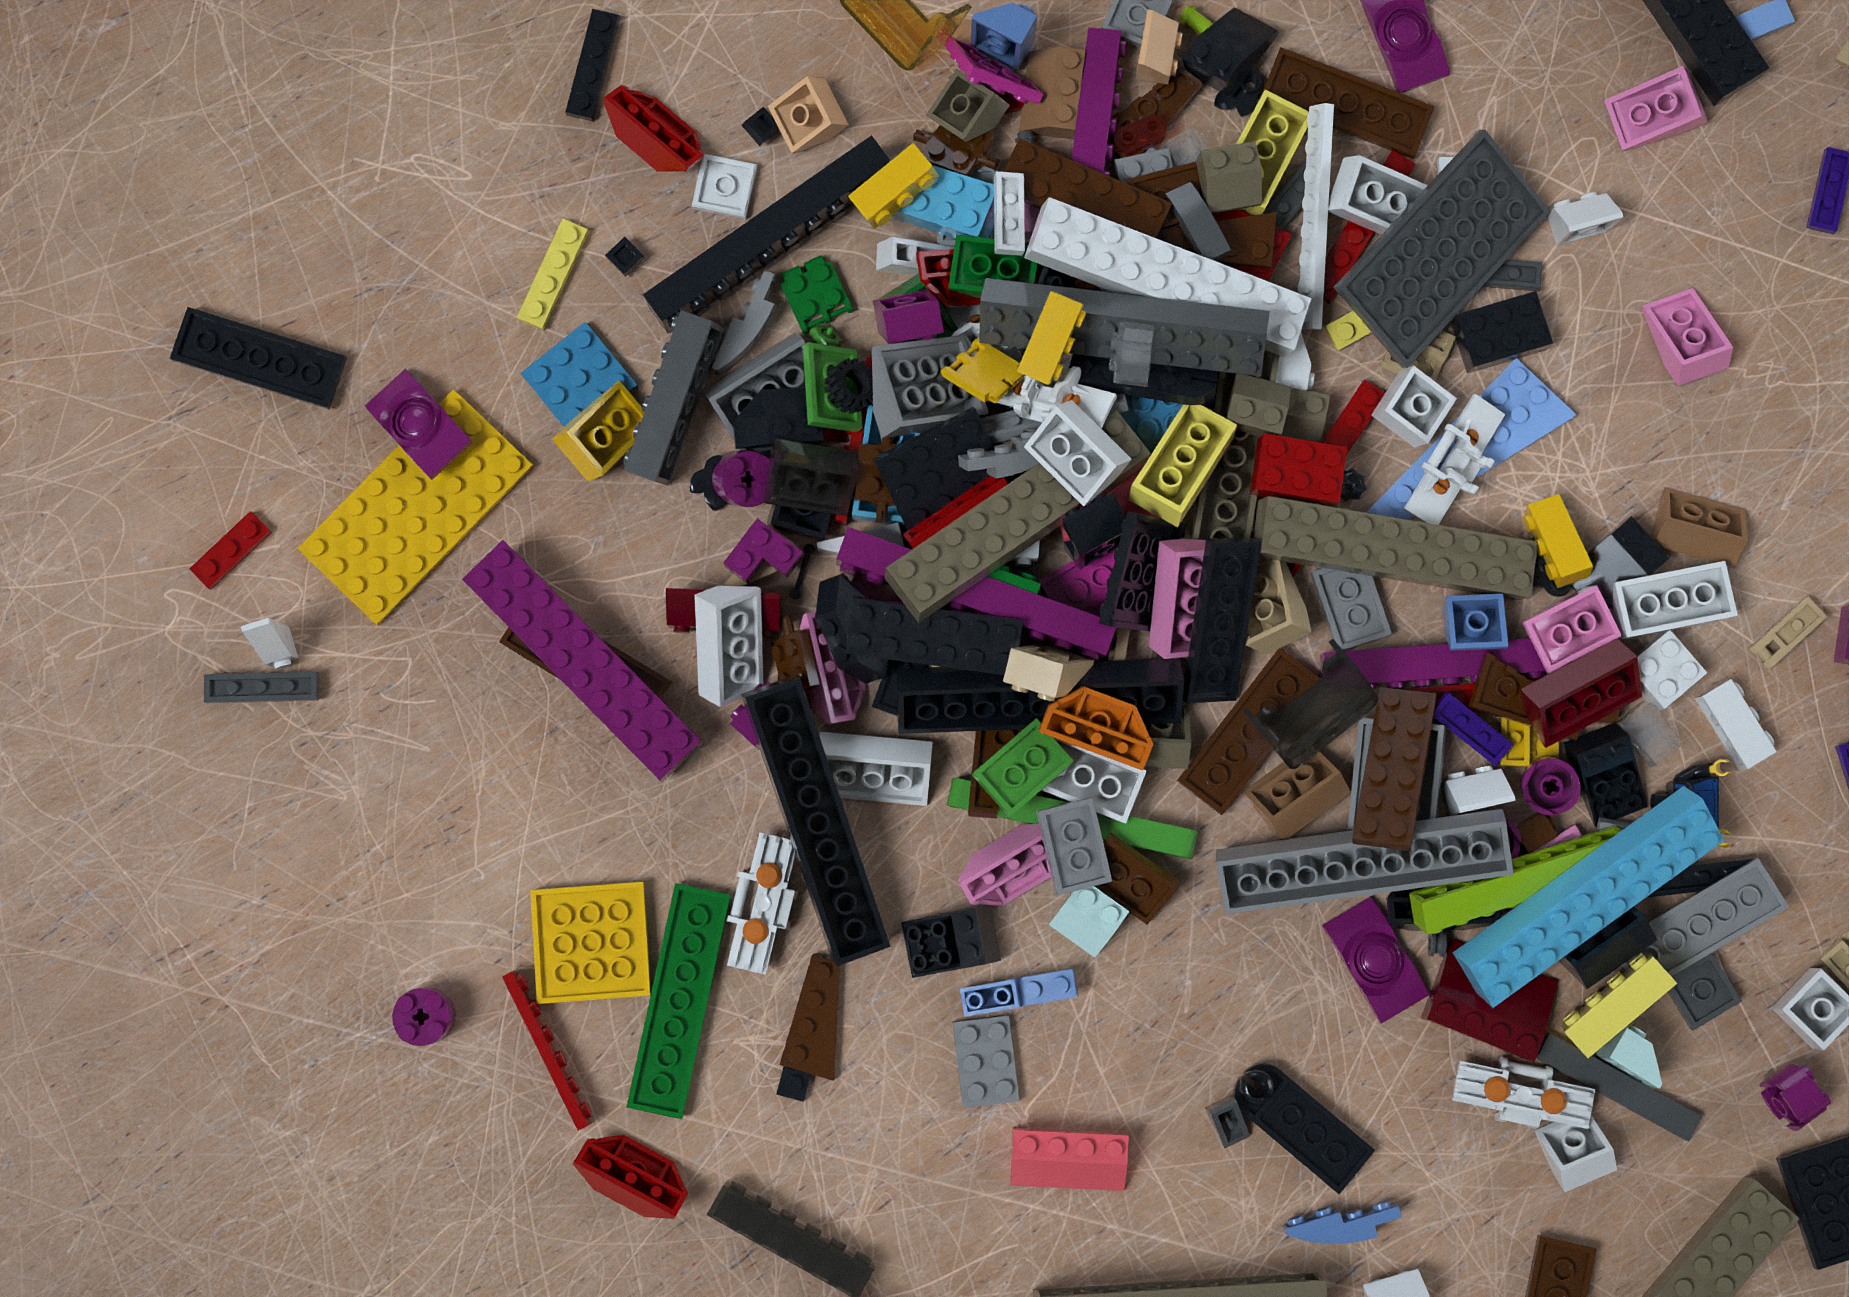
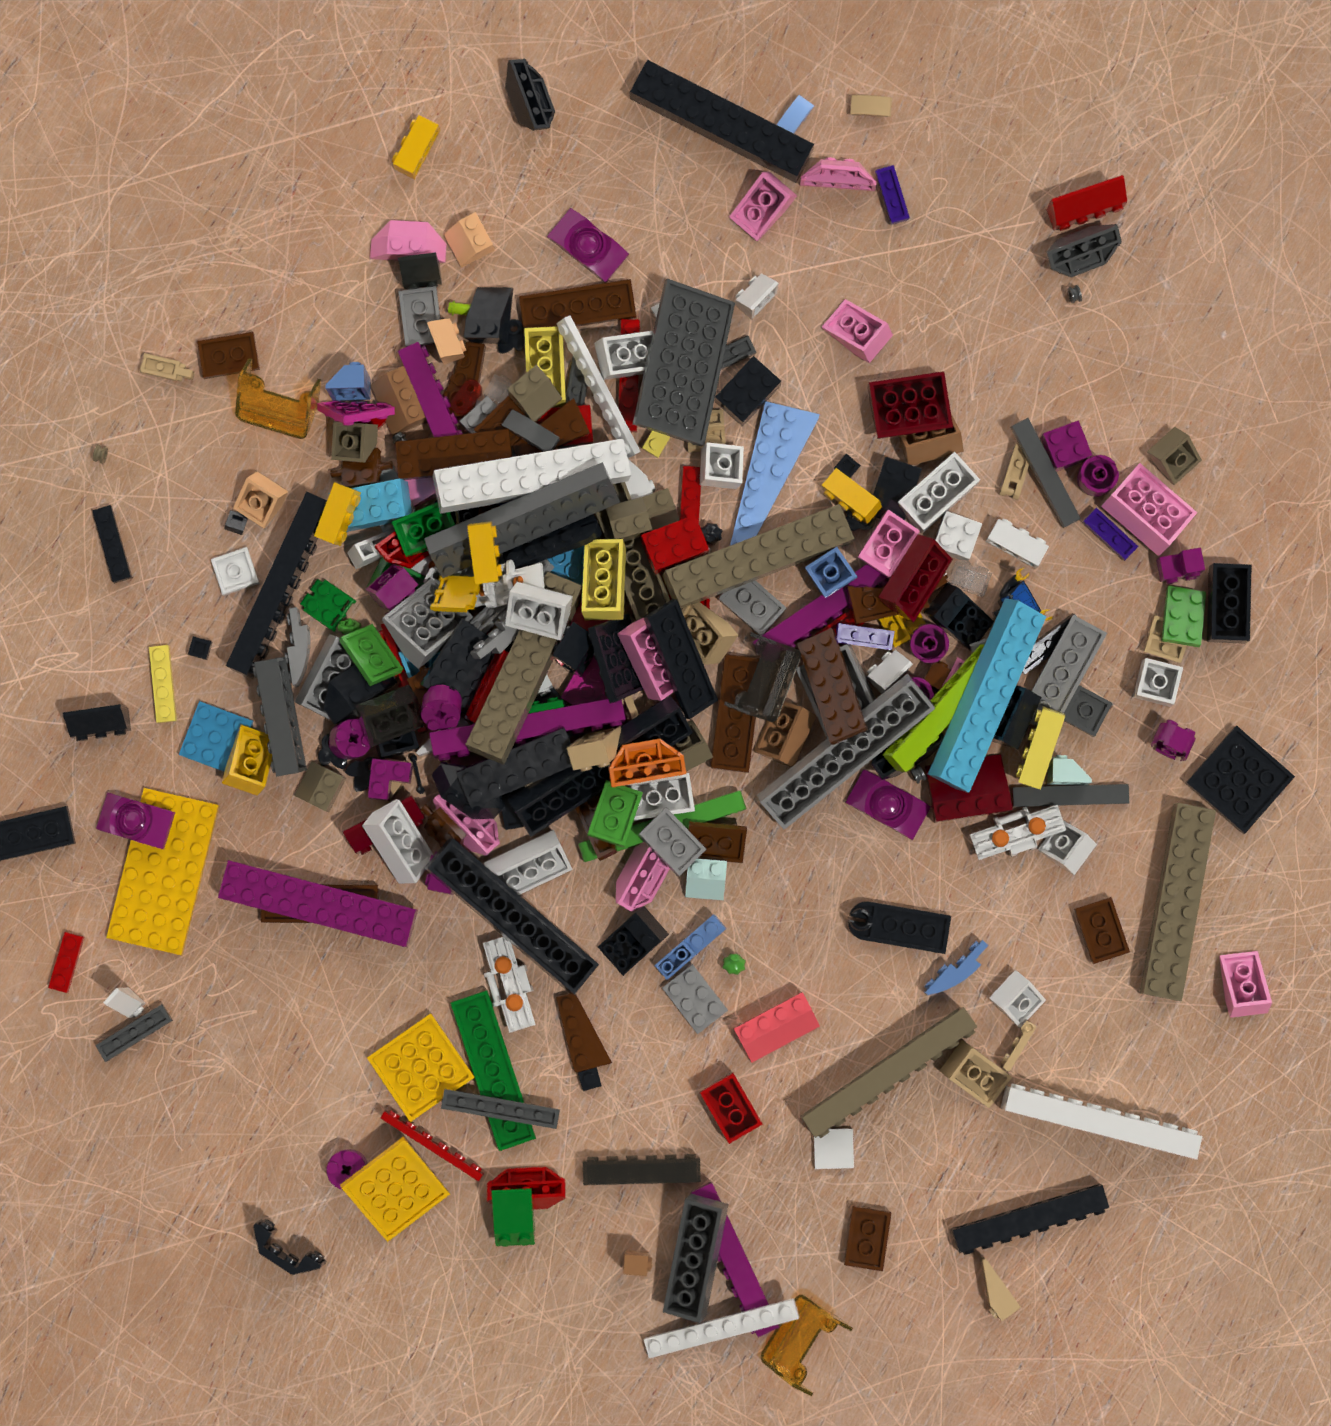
camera: 30 degrees left, 0 degrees up
(270, 1067) = (264, 1233): none -> black slope
(444, 273) = (97, 722): none -> black slope
(467, 1077) = (395, 1189): none -> yellow plate
(594, 1203) = (513, 1217): none -> green slope
(652, 130) = (172, 563): red wedge -> none
(659, 1055) = (500, 1108): none -> dark grey plate
(672, 516) = (320, 786): none -> dark tan slope
(733, 528) = (360, 771): none -> black plate
(839, 390) = (378, 655): black tyre -> none
(881, 504) = (441, 707): none -> magenta brick
(951, 1228) = (731, 1108): none -> red brick
(1009, 213) = (415, 491): white plate -> none
(1061, 1047) = (734, 964): none -> bright green piece
(1133, 353) = (537, 533): clear brick -> none
(1228, 1121) = (856, 950): dark grey slope -> none
(1462, 464) = (764, 462): white piece -> none
(1575, 499) = (847, 466): none -> black plate
(1701, 468) = (910, 405): none -> dark red slope
(1776, 126) = (838, 174): none -> bright pink wedge
(1825, 655) = (1045, 472): none -> dark grey tile

